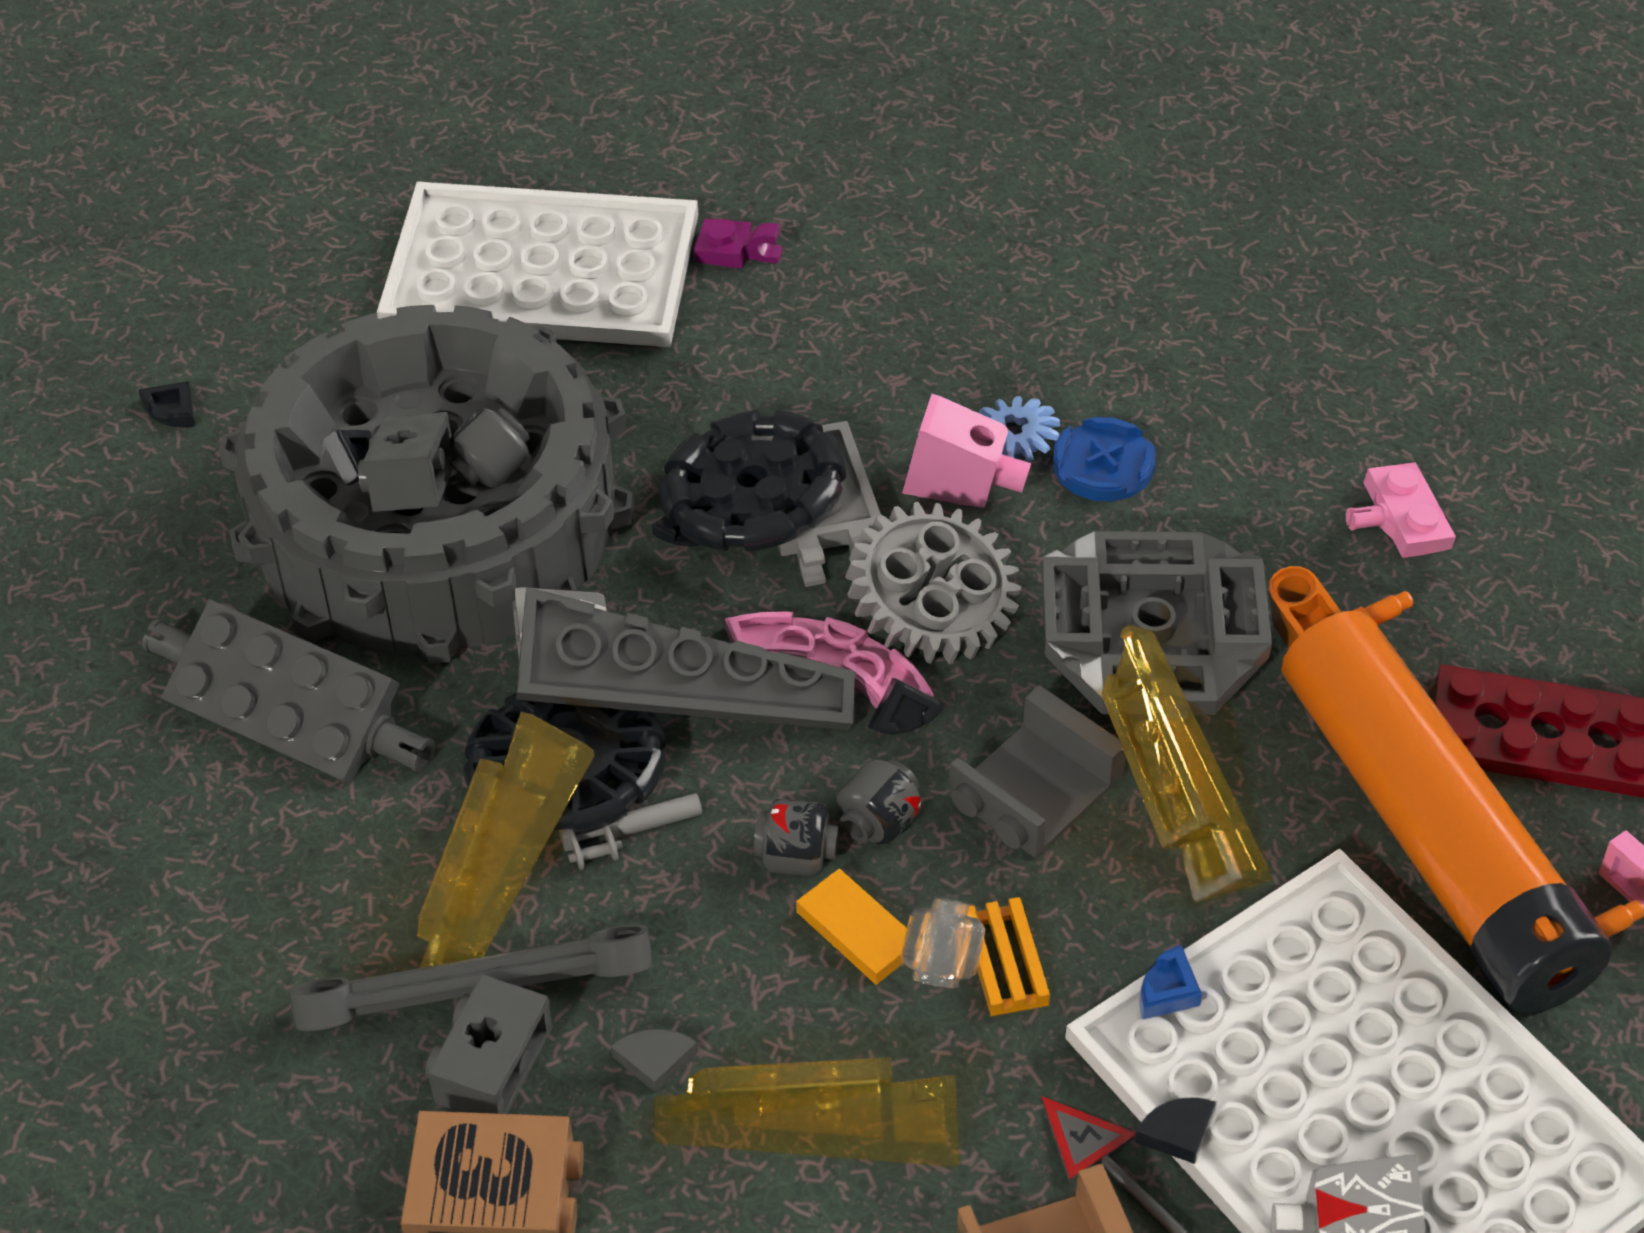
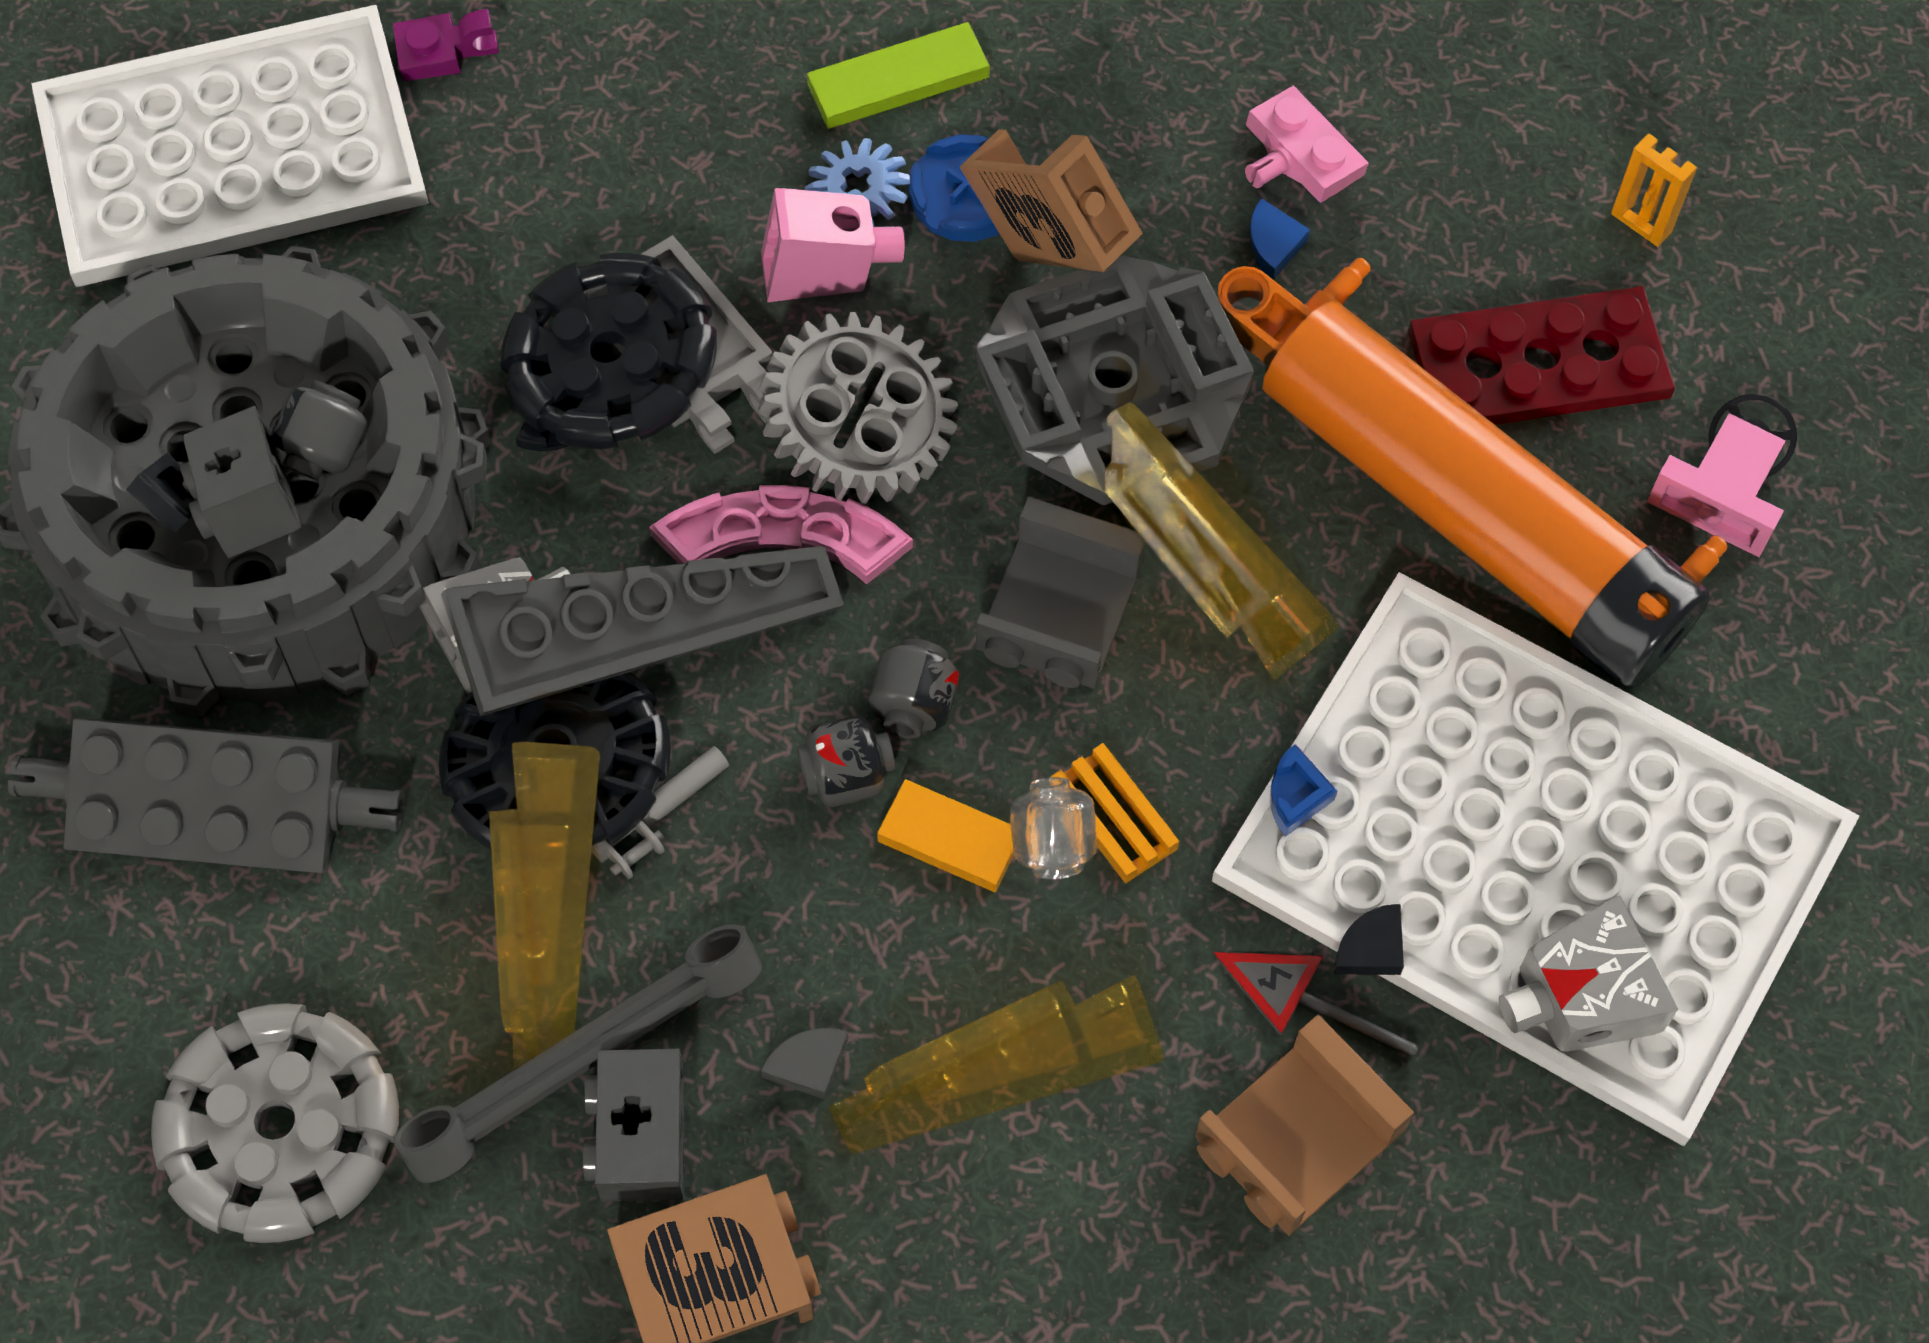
camera: 25 degrees left, 15 degrees up
(197, 919) = (241, 1099): none -> light grey plate
(904, 709) = (890, 568): black tile -> none
(1086, 364) = (898, 75): none -> lime tile
(1158, 472) = (1054, 211): none -> medium nougat panel
(1349, 570) = (1275, 238): none -> blue tile

